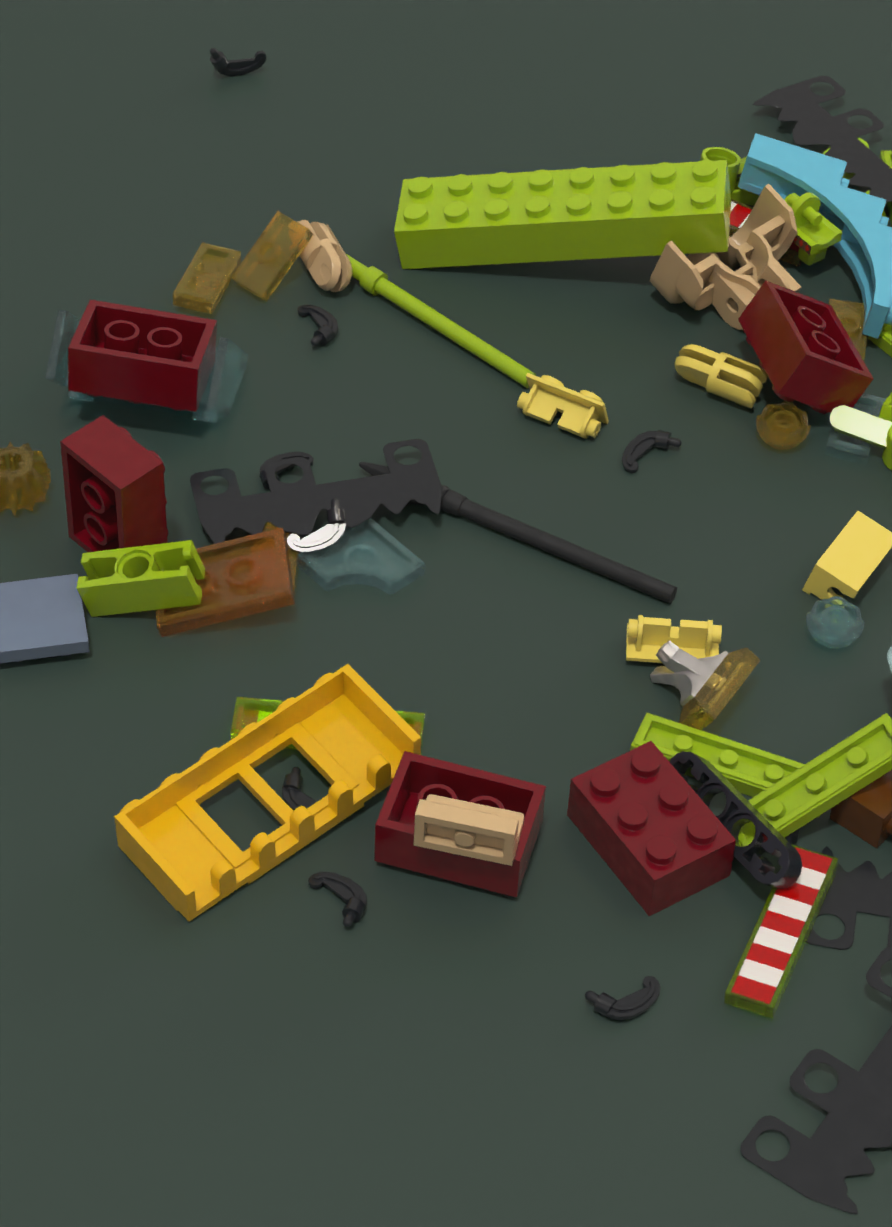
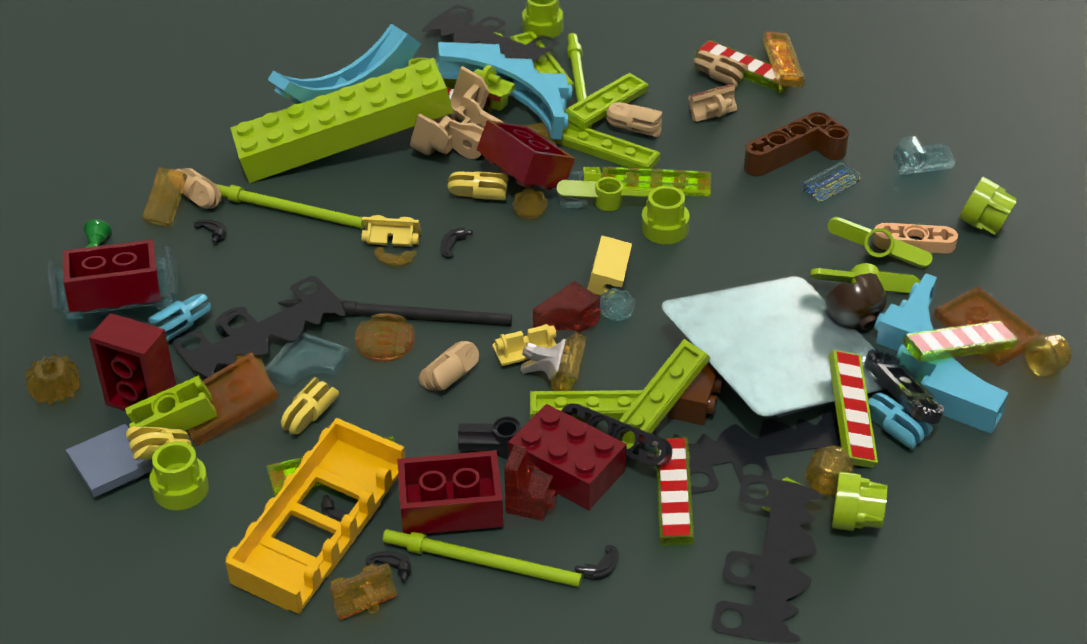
camera: 20 degrees left, 5 degrees down
(104, 617) = (147, 439): none -> light yellow arm
(113, 673) = (178, 476): none -> lime piece
(160, 283) = (97, 232): none -> green piece
(206, 278) = (126, 221): clear yellow plate -> none
(222, 441) = (182, 313): none -> medium azure arm
(236, 67) = (85, 95): black piece -> none
(282, 920) = (363, 591): none -> clear yellow hips
(324, 536) = (279, 349): piece -> none
(329, 630) = (308, 406): none -> light yellow arm
(391, 880) = (420, 543): none -> lime bar
(467, 829) = (463, 491): tan panel -> none
(483, 563) = (384, 337): none -> clear yellow tile
(550, 450) = (392, 259): none -> clear yellow piece
(550, 637) = (449, 366): none -> tan arm
(552, 758) = (488, 436): none -> black piece
(569, 853) = (527, 488): none -> clear red arch
(669, 136) = (387, 54): none -> medium azure arch
(759, 607) = (569, 309): none -> clear red arch

